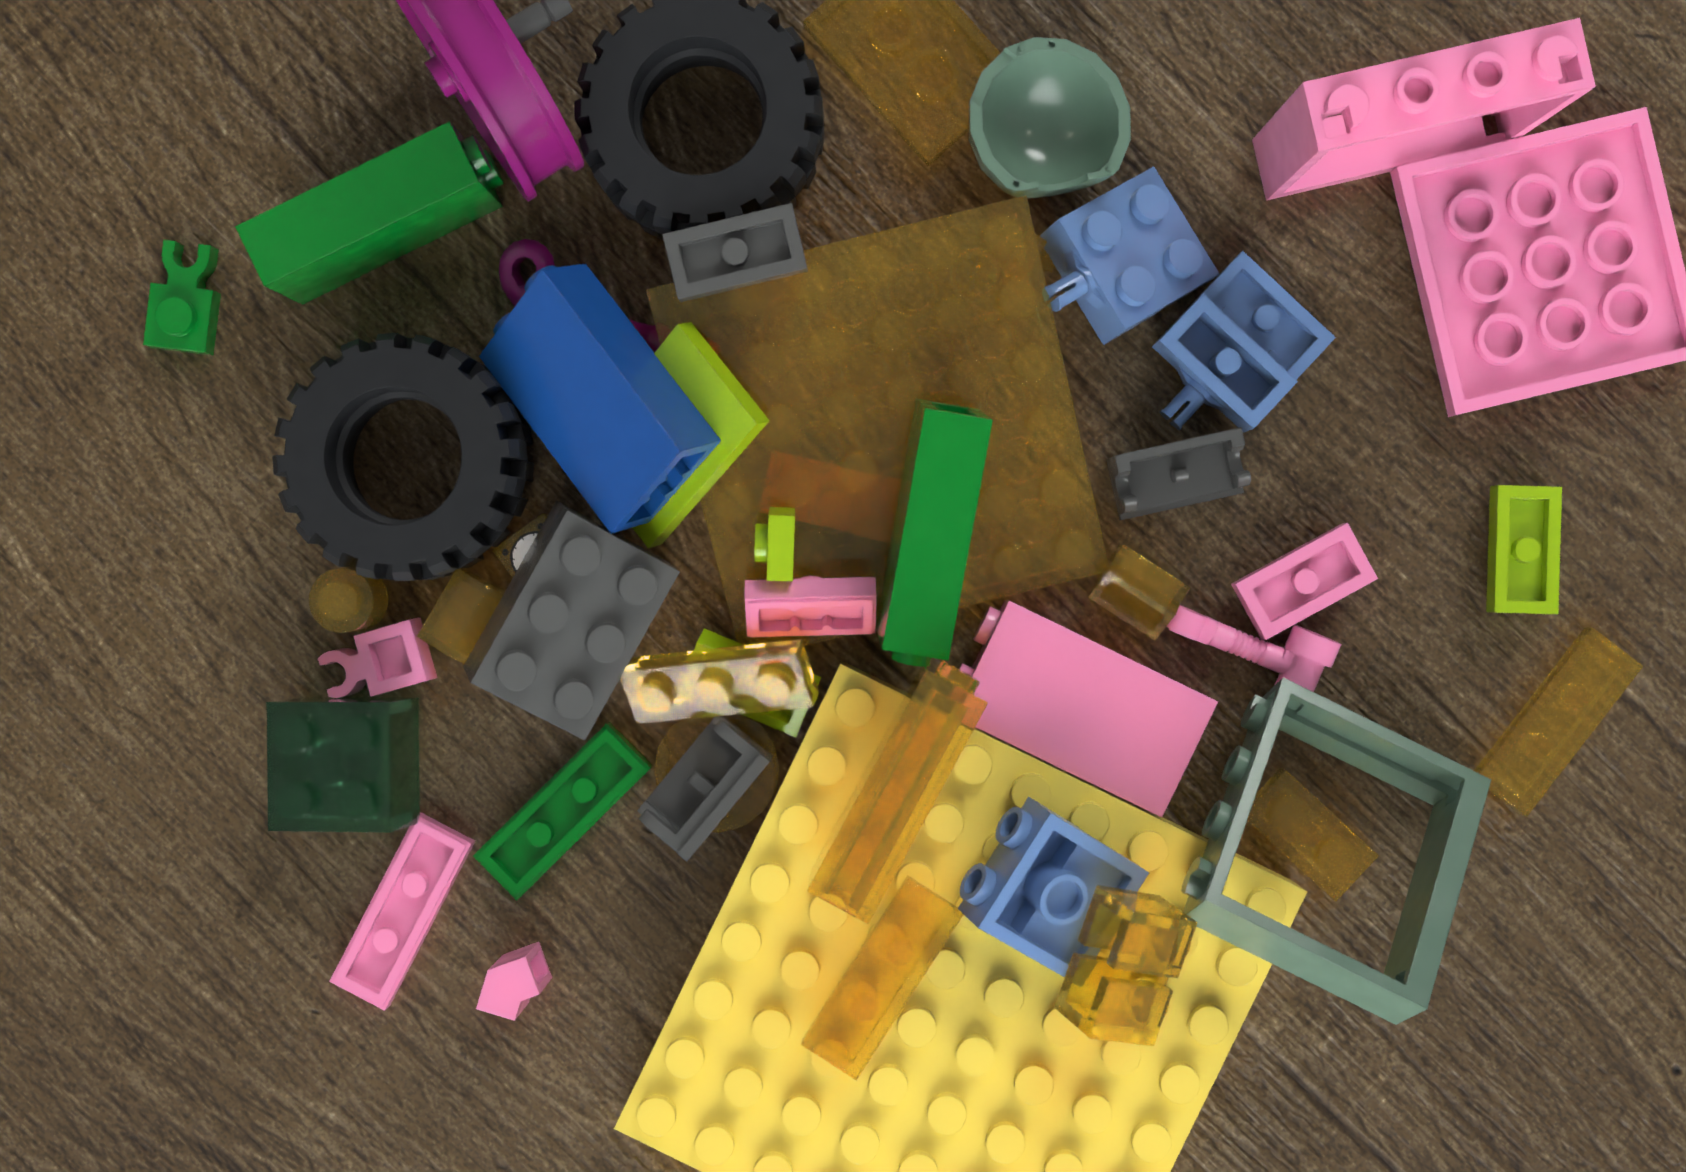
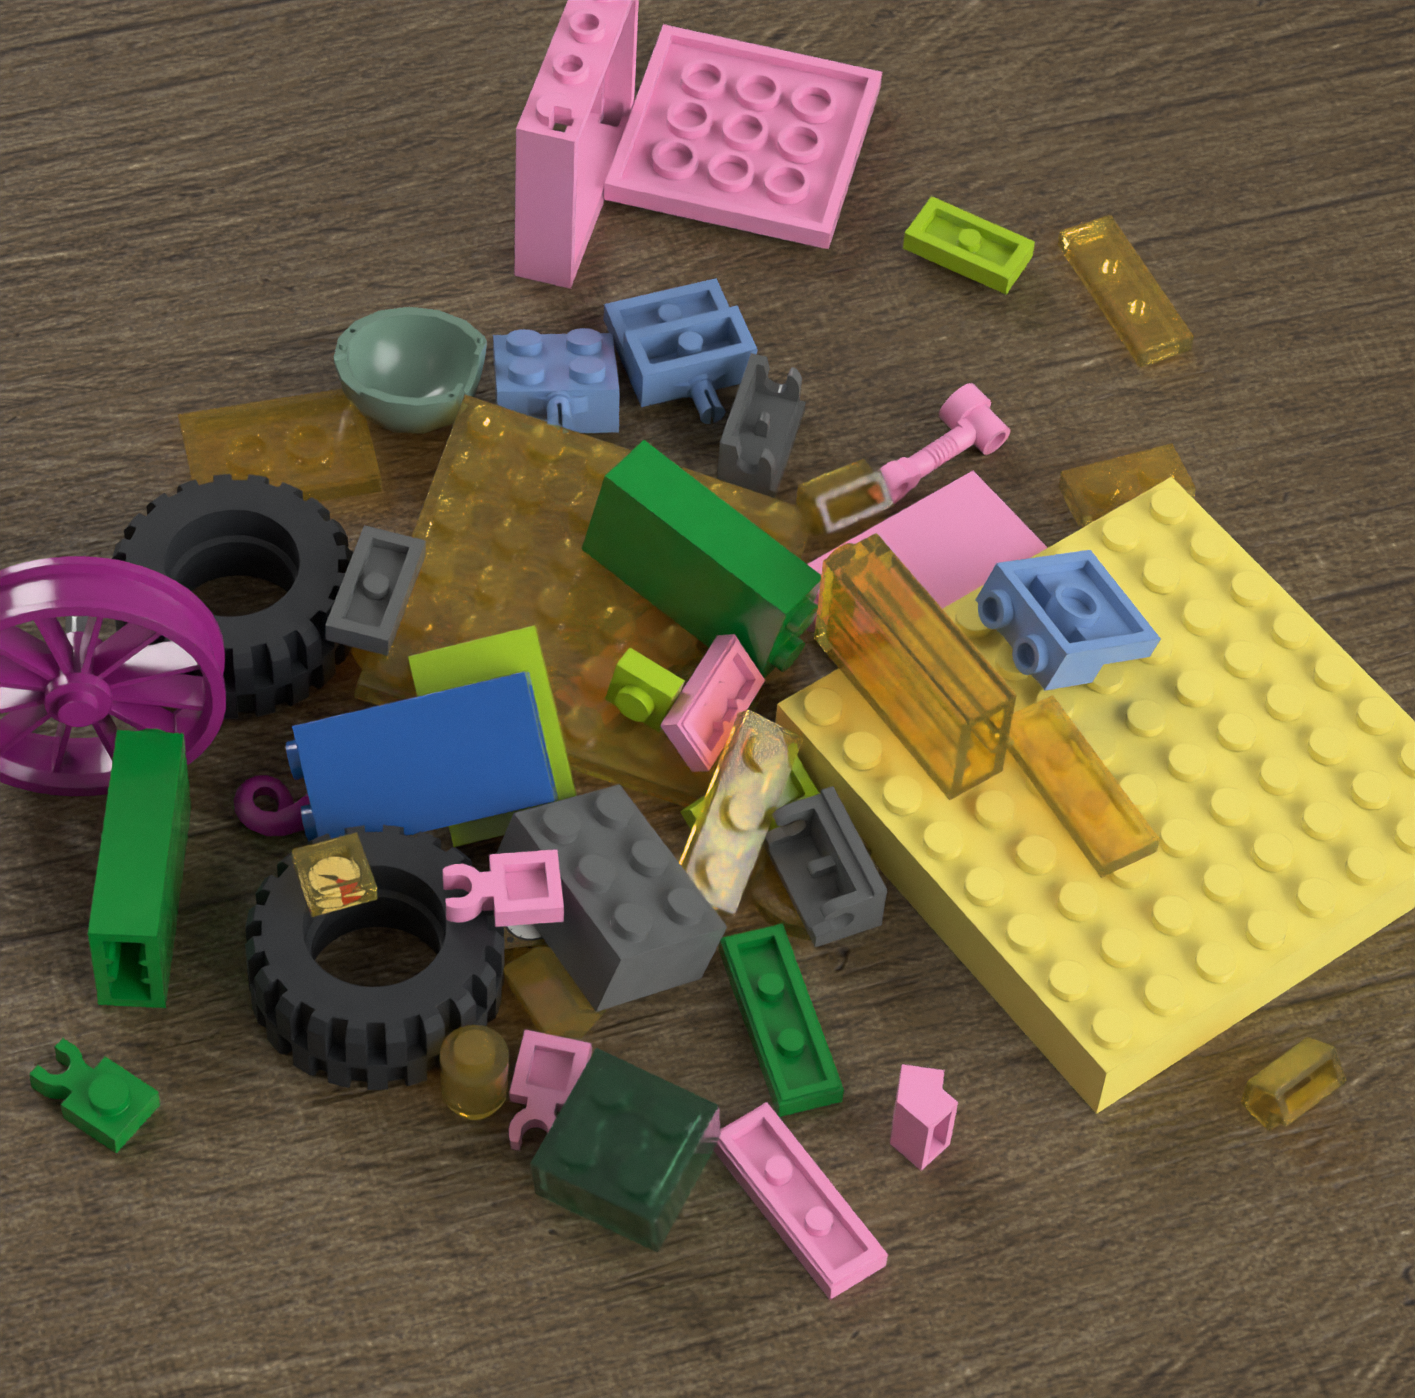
camera: 60 degrees left, 35 degrees down
(412, 396) = (334, 874): none -> clear yellow tile
(481, 561) = (518, 888): none -> bright pink plate
(1127, 992) = (1147, 559): clear yellow piece -> none
(1304, 581) = (906, 390): bright pink plate -> none
(1437, 879) = (1260, 420): sand green window -> none

